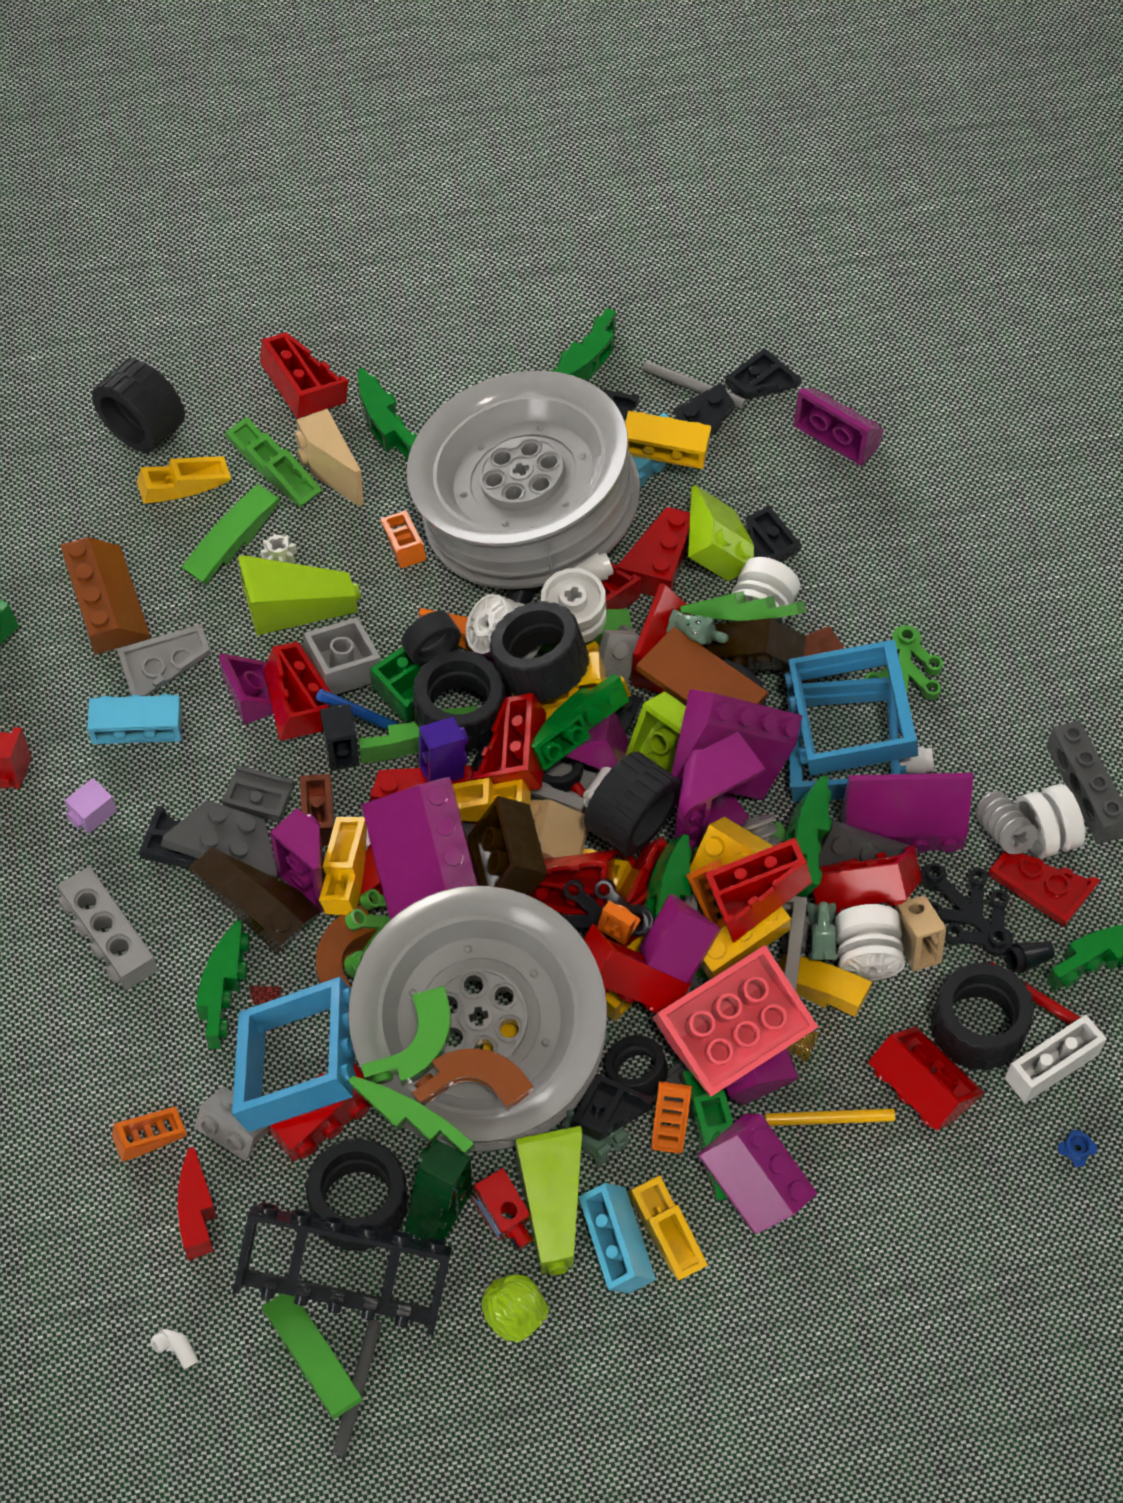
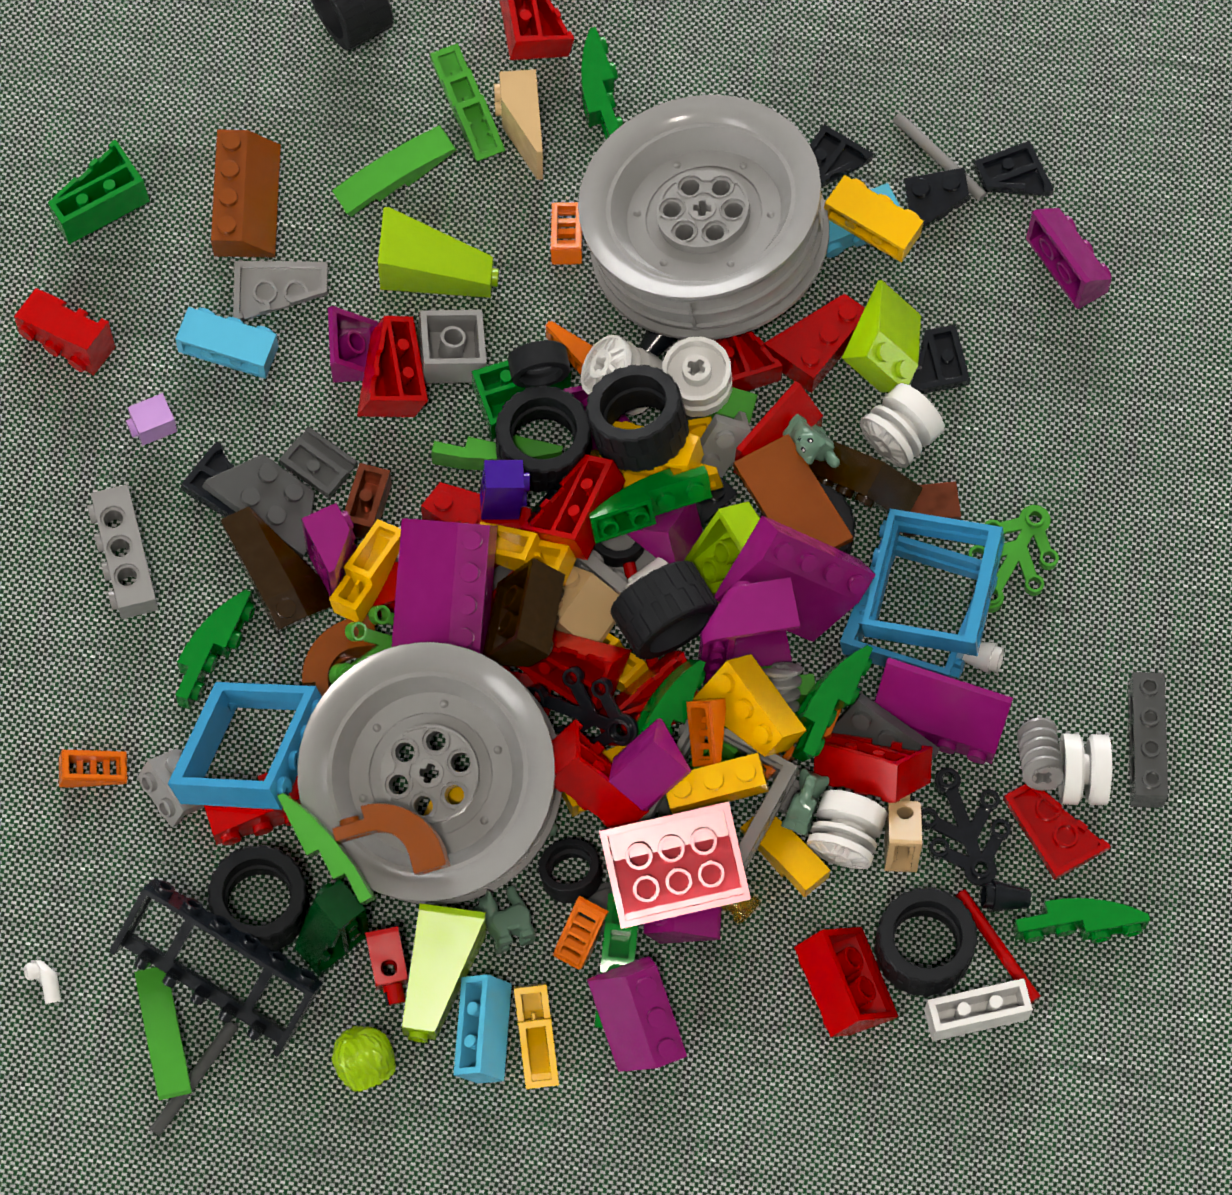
camera: 20 degrees right, 10 degrees up
(182, 478) = (368, 90): yellow slope -> none
(194, 1208) = (107, 855): red slope -> none
(264, 994) = (249, 672): clear red tile -> none
(279, 549) = (434, 206): white gear -> none
(339, 736) = (416, 432): black brick -> none
(357, 710) = (442, 410): blue bar -> none
(428, 1044) = (370, 783): bright green arch -> none
(588, 357) = (831, 92): green slope -> none
(598, 565) = (736, 341): white cone -> none
(609, 1107) = (524, 902): black wing -> none
(618, 922) = (598, 727): orange bracket -> none
(736, 608) = (862, 436): bright green slope -> none
(758, 885) = (741, 742): red wedge -> none
(830, 1117) = (737, 986): yellow bar -> none
(1080, 1139) = (966, 1094): blue plate -> none

